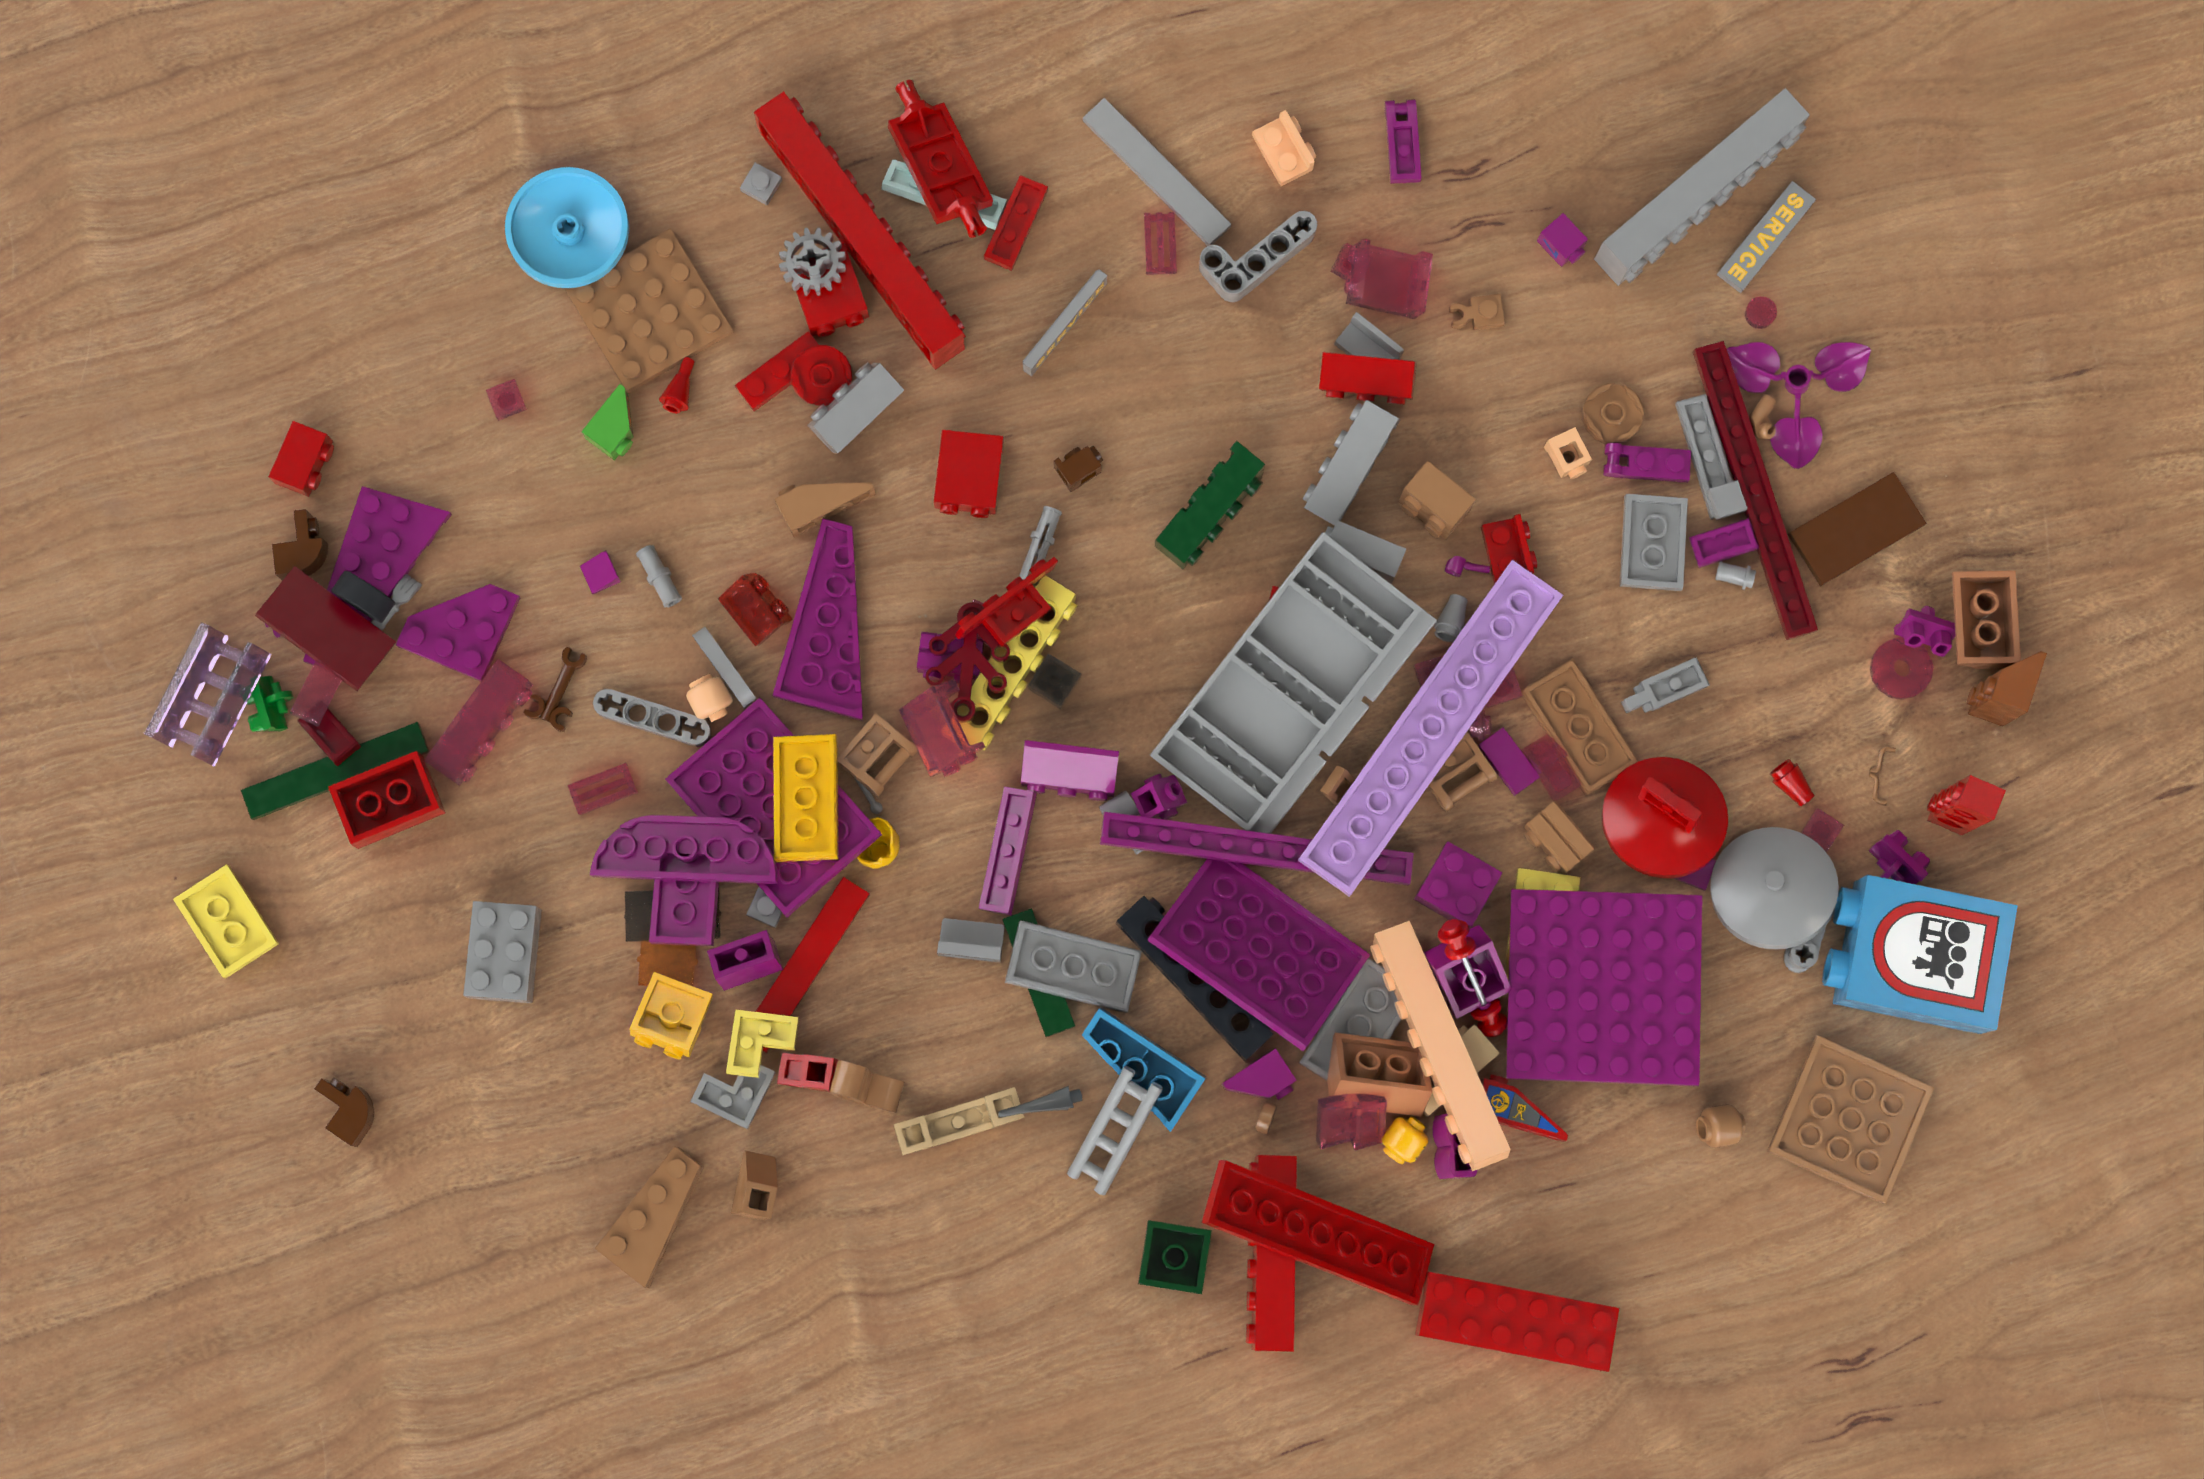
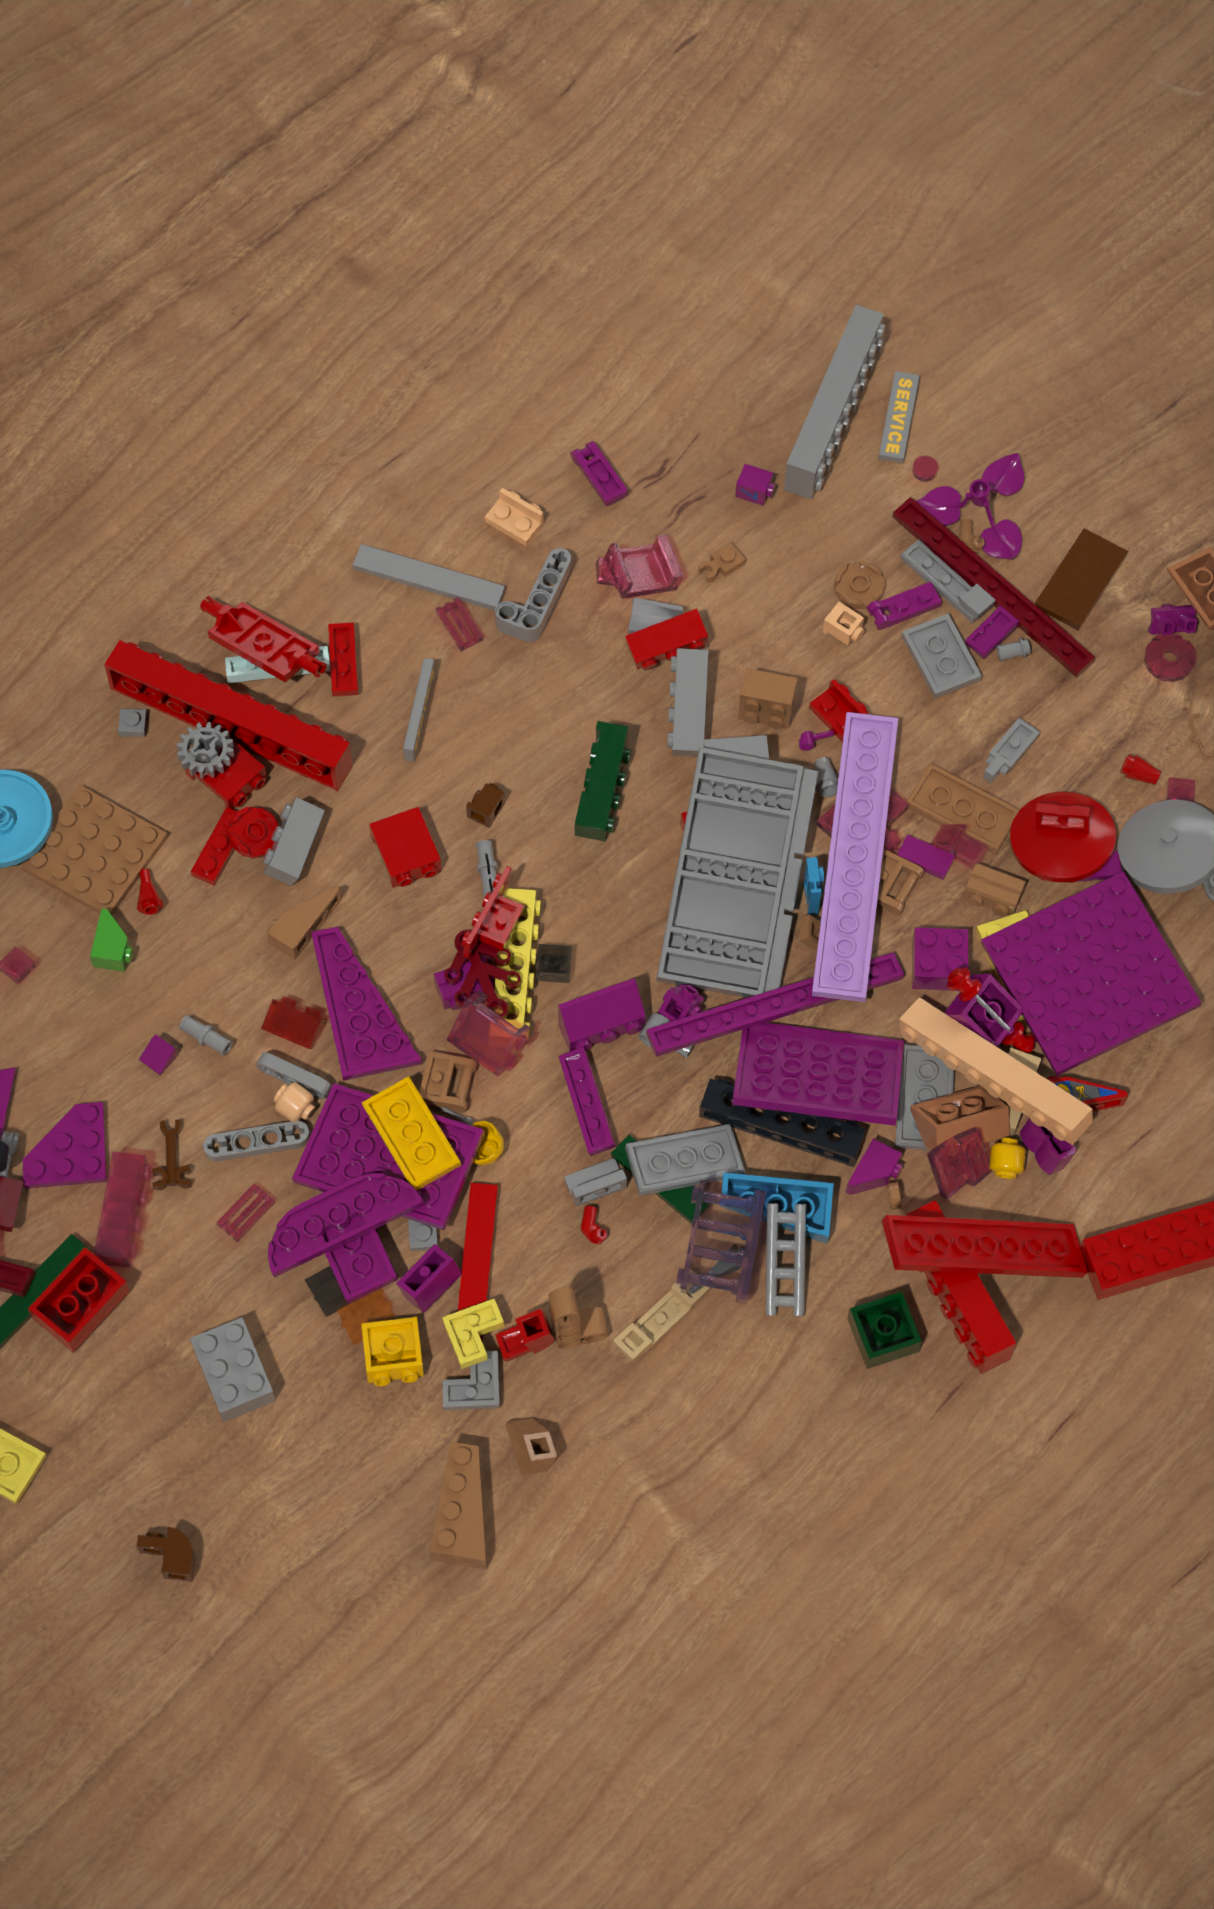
camera: 25 degrees left, 15 degrees down
(939, 989) = (590, 1228): none -> red arm
(1087, 1086) = (742, 1259): none -> clear purple fence
(1369, 737) = (813, 884): none -> dark azure plate

